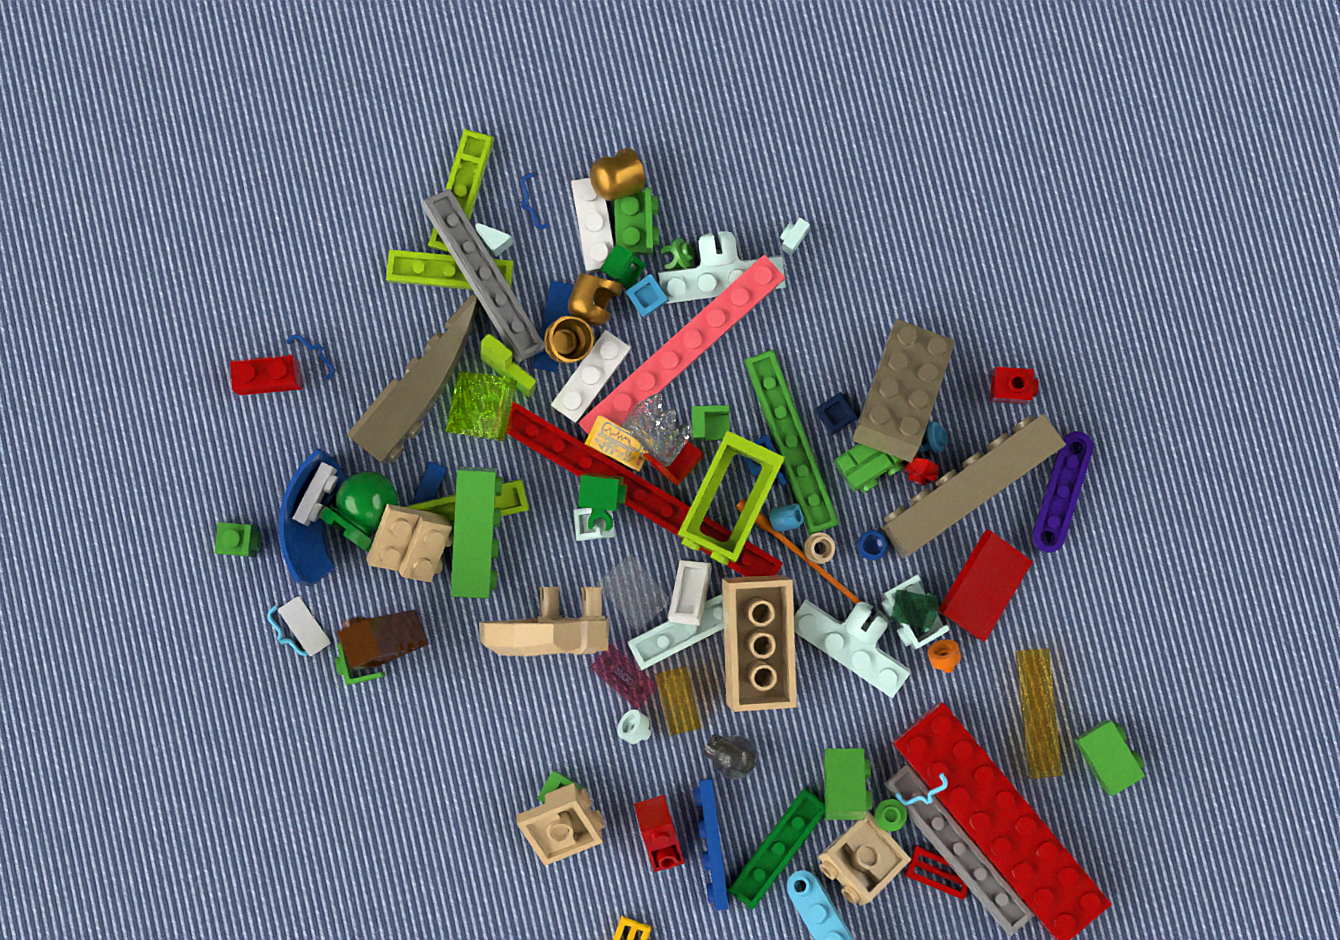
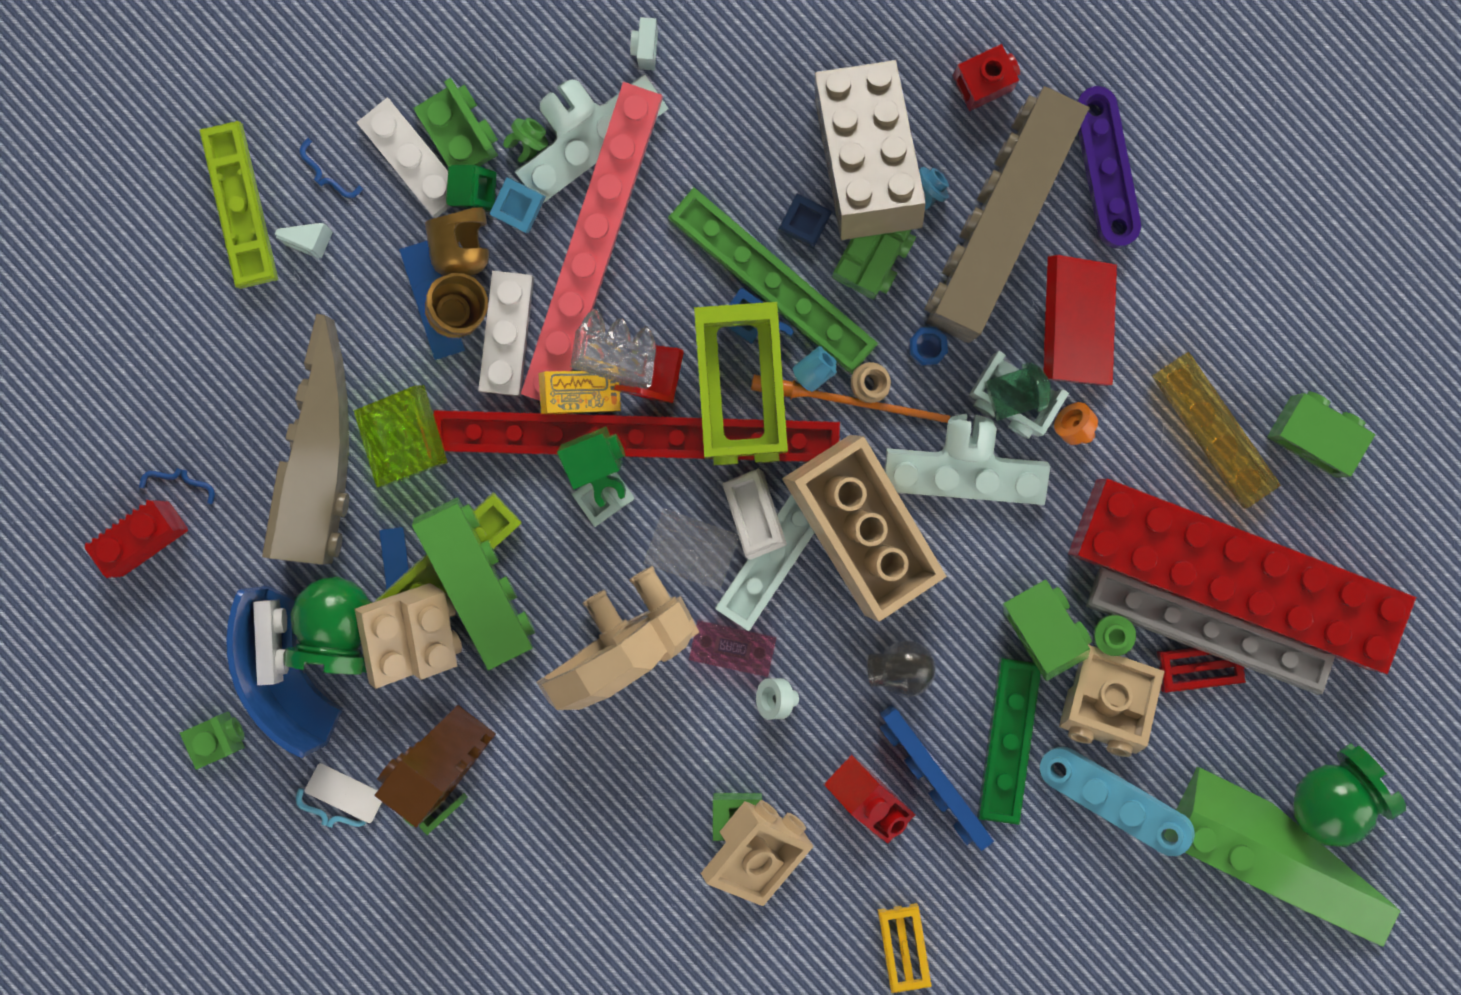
camera: 25 degrees left, 5 degrees up
(434, 270) = (277, 303): lime plate -> none
(483, 275) = (316, 286): light grey tile -> none
(500, 359) = (390, 371): lime tile -> none
(617, 175) = (405, 84): pearl gold helmet -> none
(678, 700) = (807, 641): clear yellow slope -> none
(710, 422) = (669, 310): bright green panel -> none
(921, 471) = (938, 231): red plate -> none
(927, 800) = (1149, 589): medium azure piece -> none

